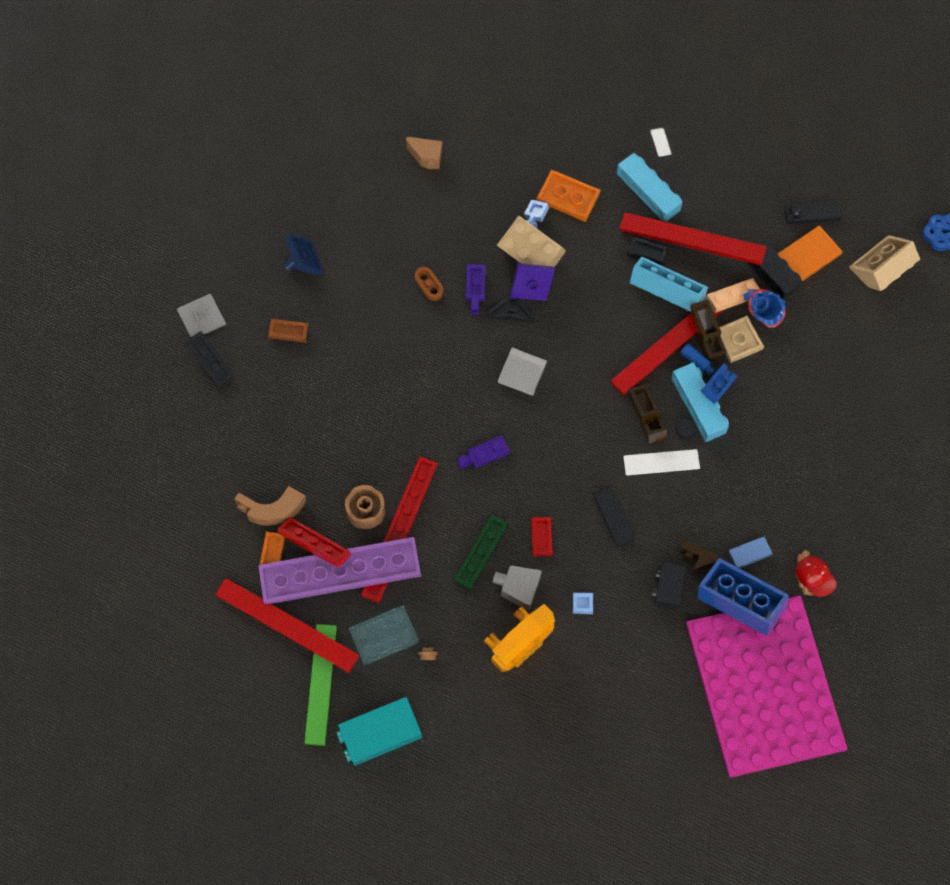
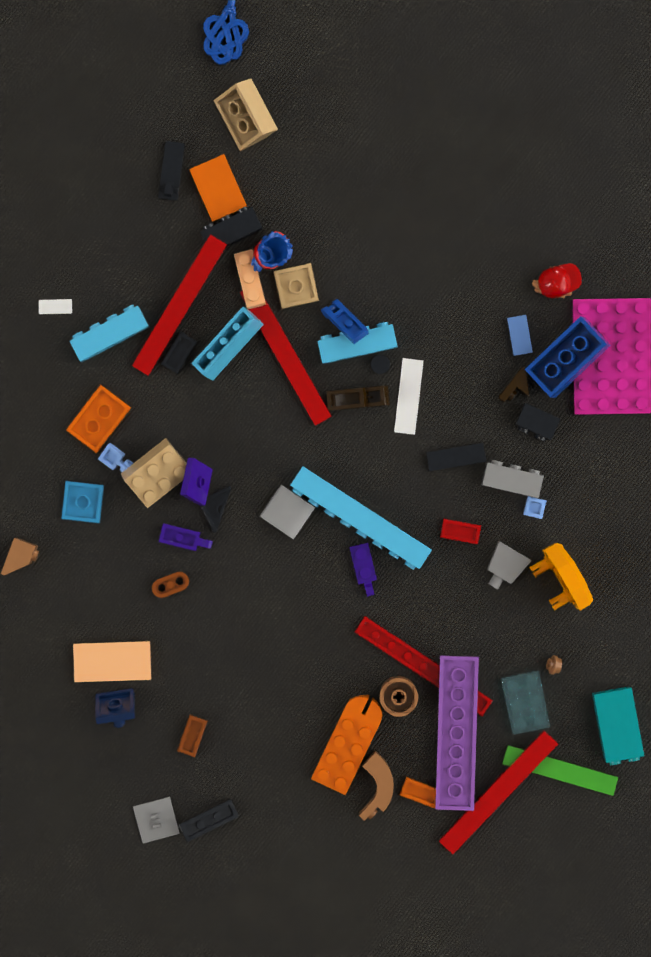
camera: 75 degrees left, 20 degrees up
(308, 471) = (348, 744): none -> orange plate
(314, 542) = (424, 752): red tile -> none
(345, 249) = (112, 661): none -> light nougat tile
(480, 552) = (463, 593): dark green tile -> none
(488, 196) = (82, 502): none -> dark azure tile
(532, 439) = (360, 517): none -> medium azure brick
(606, 573) = (512, 479): none -> light grey brick
(699, 360) = (310, 334): blue cylinder -> none
(708, 330) = (285, 316): dark brown slope -> none

